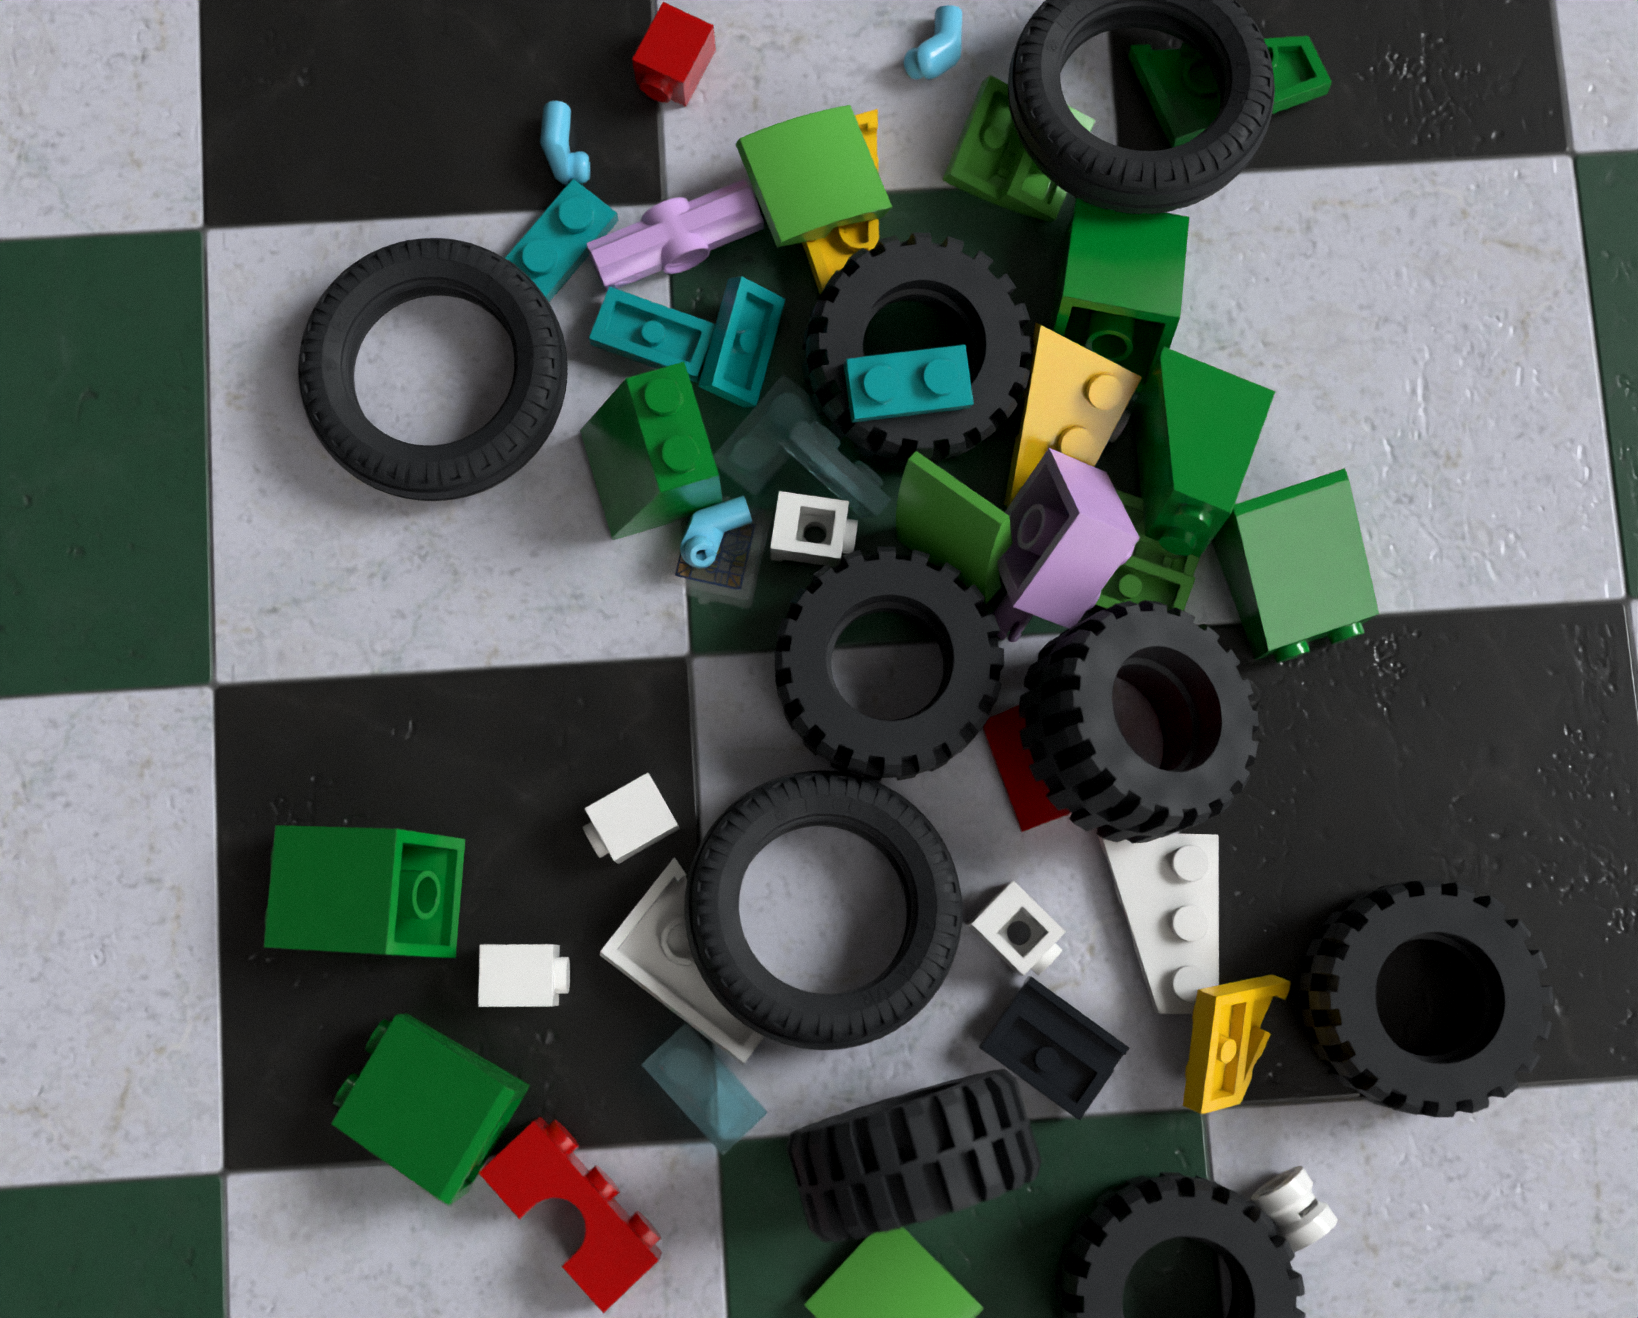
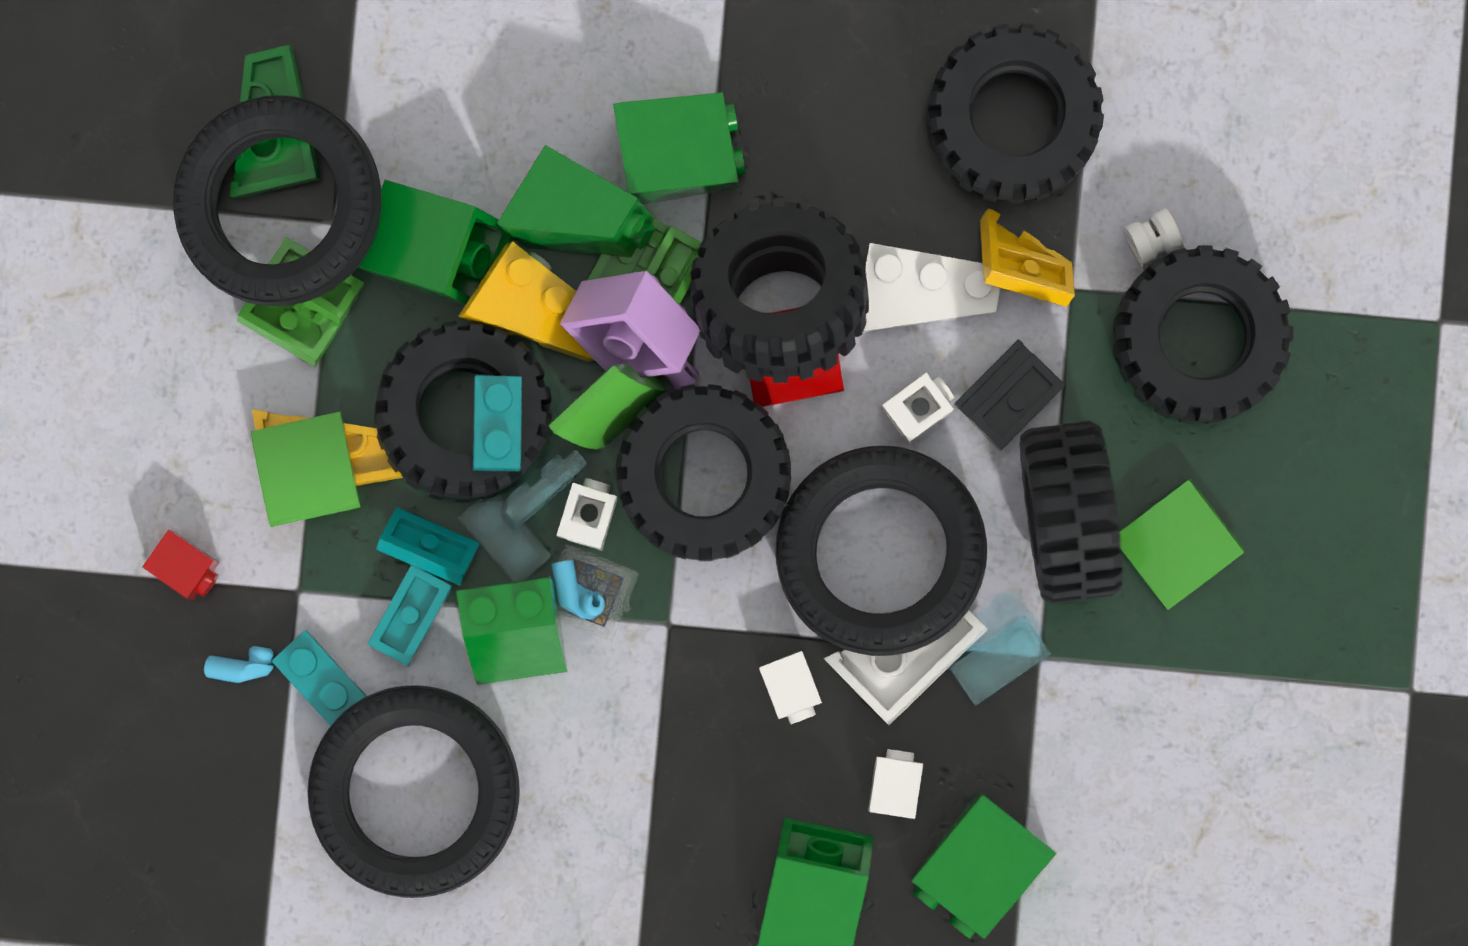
camera: 70 degrees left, 5 degrees up
(615, 1246) = (1039, 788): red arch -> none
(675, 235) = (332, 586): lavender piece -> none
(941, 50) = (208, 350): medium azure arm -> none

